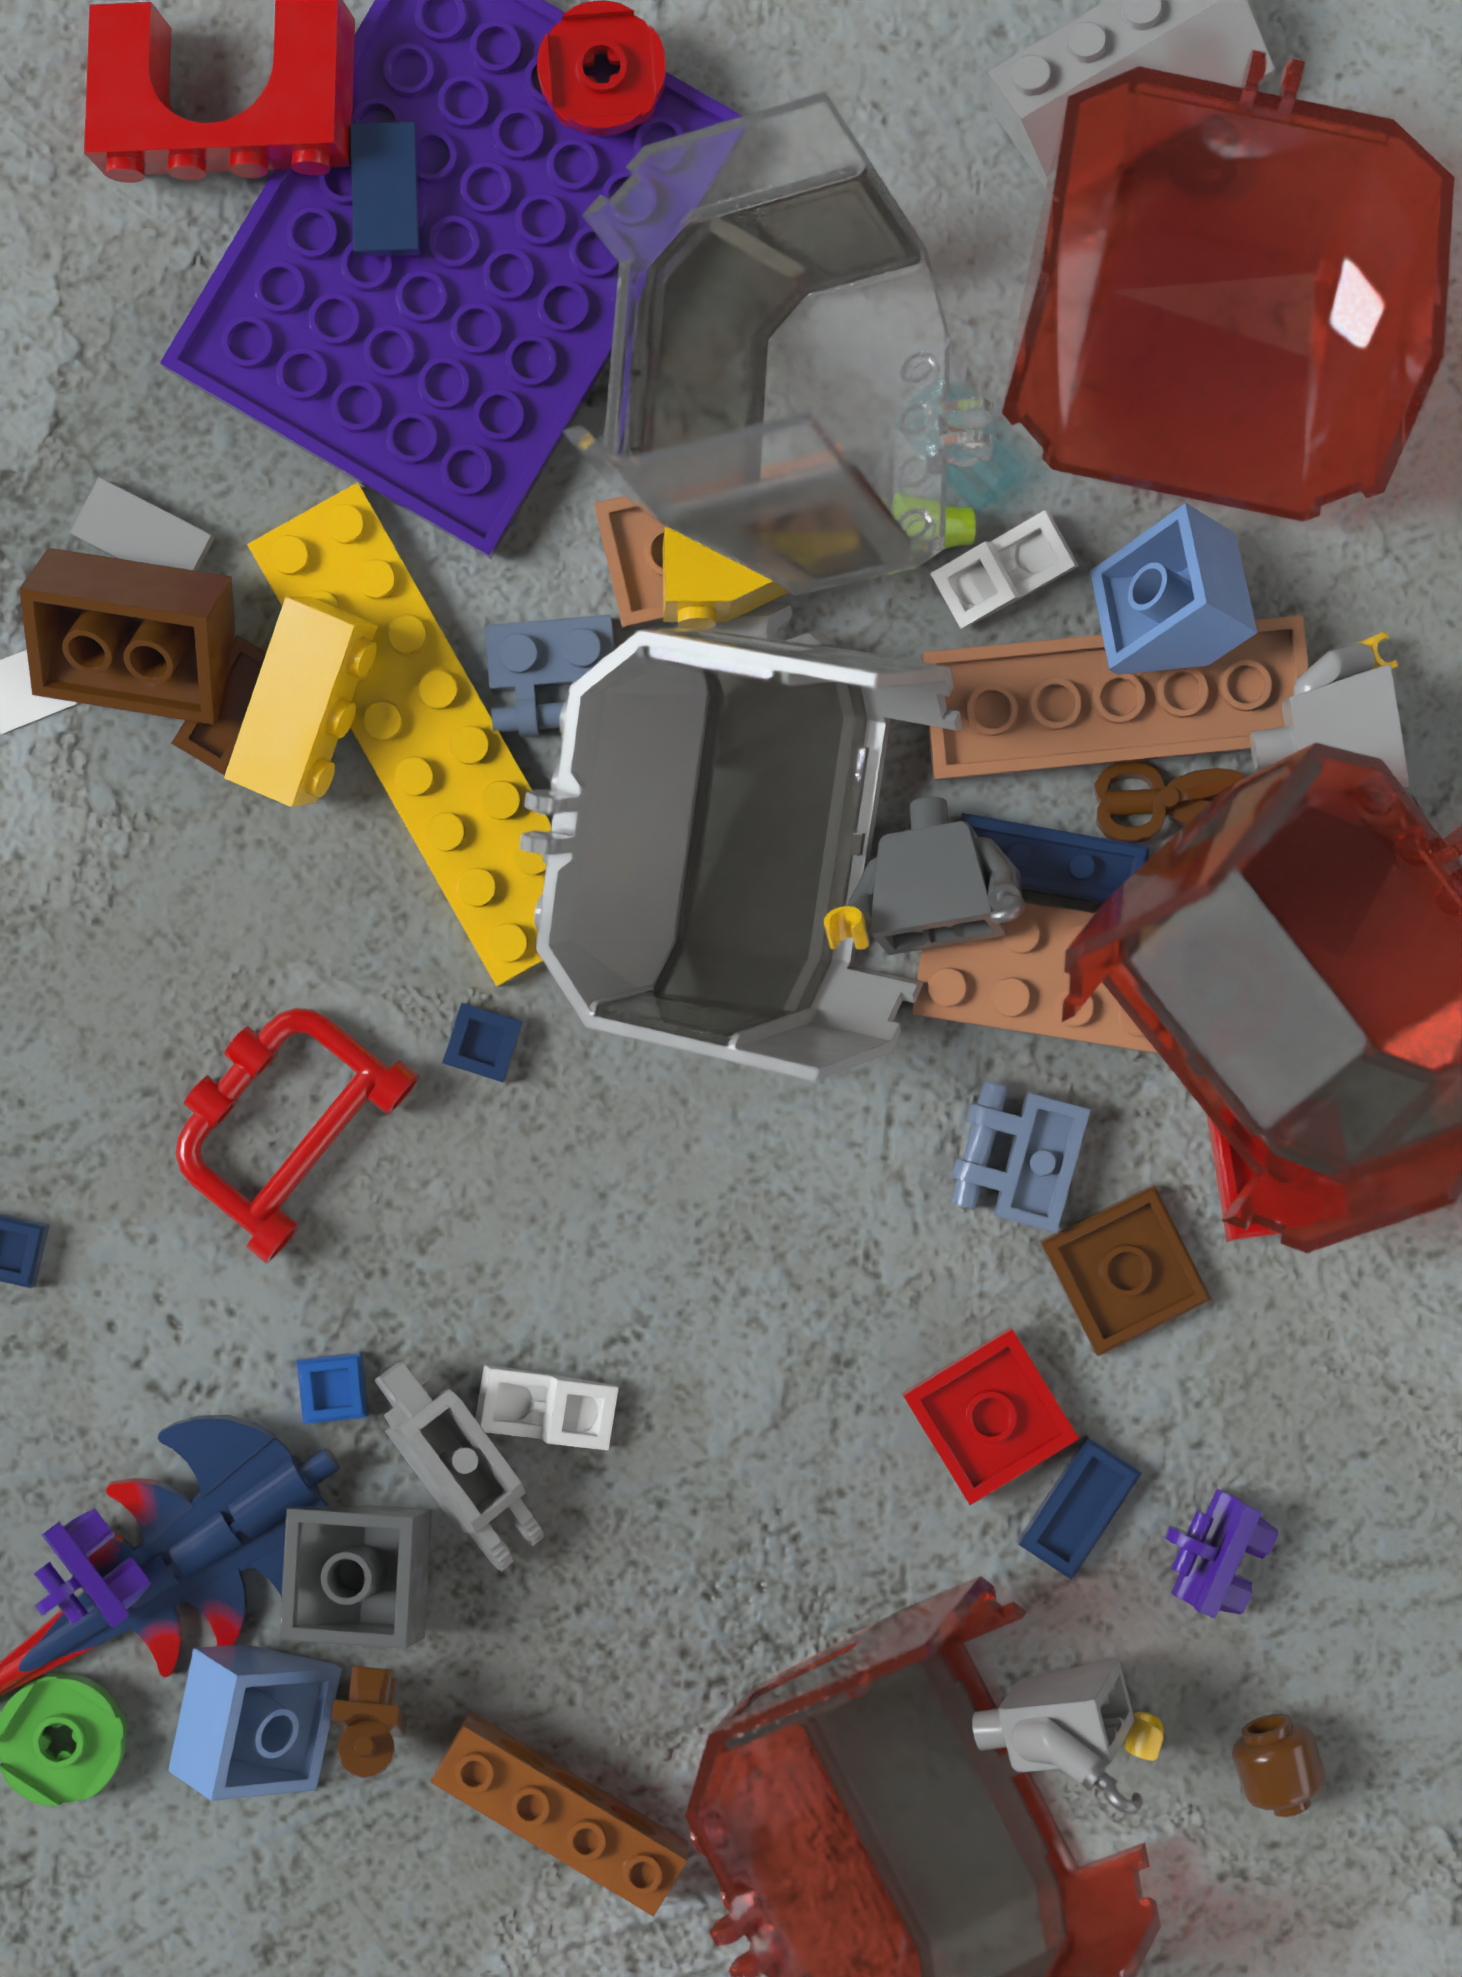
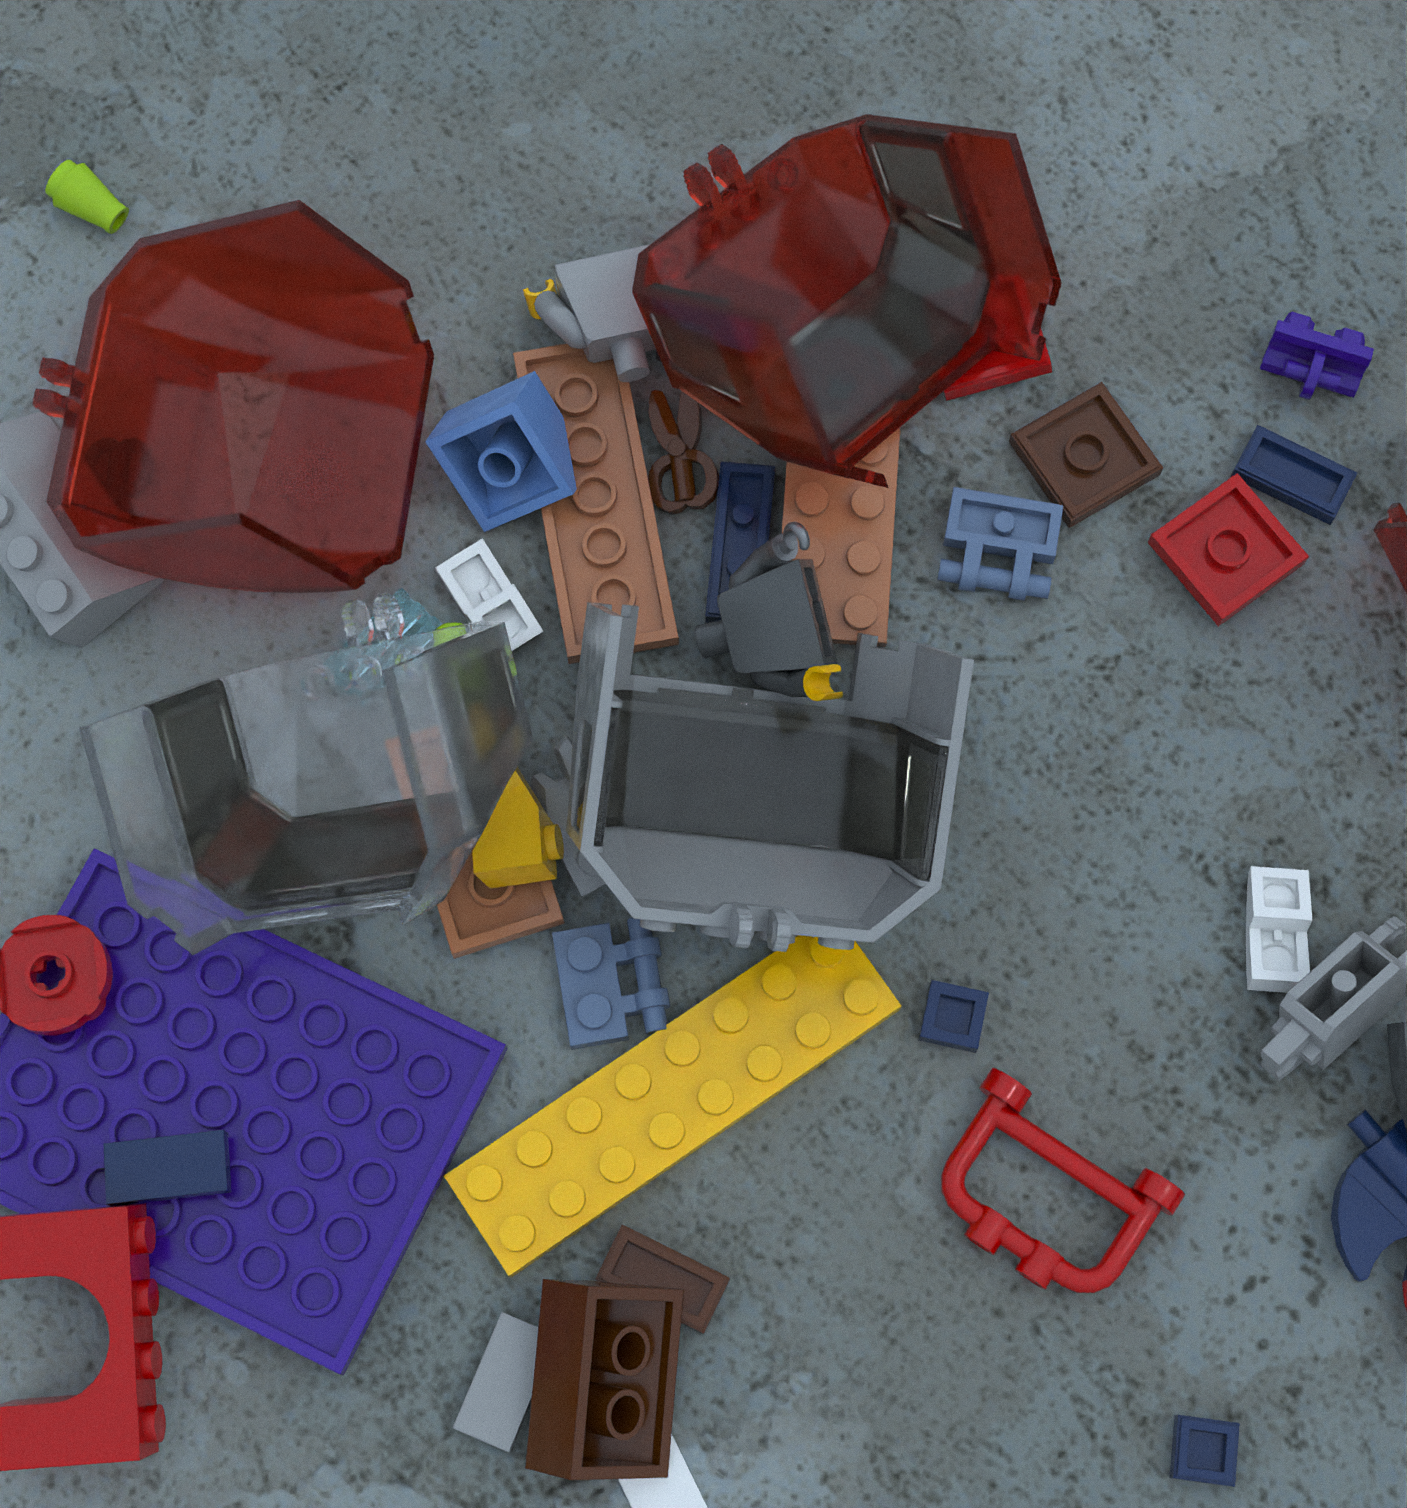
camera: 90 degrees left, 15 degrees down
(302, 701) = (657, 1200): yellow brick -> none
(332, 1388) = (1289, 1126): blue tile -> none

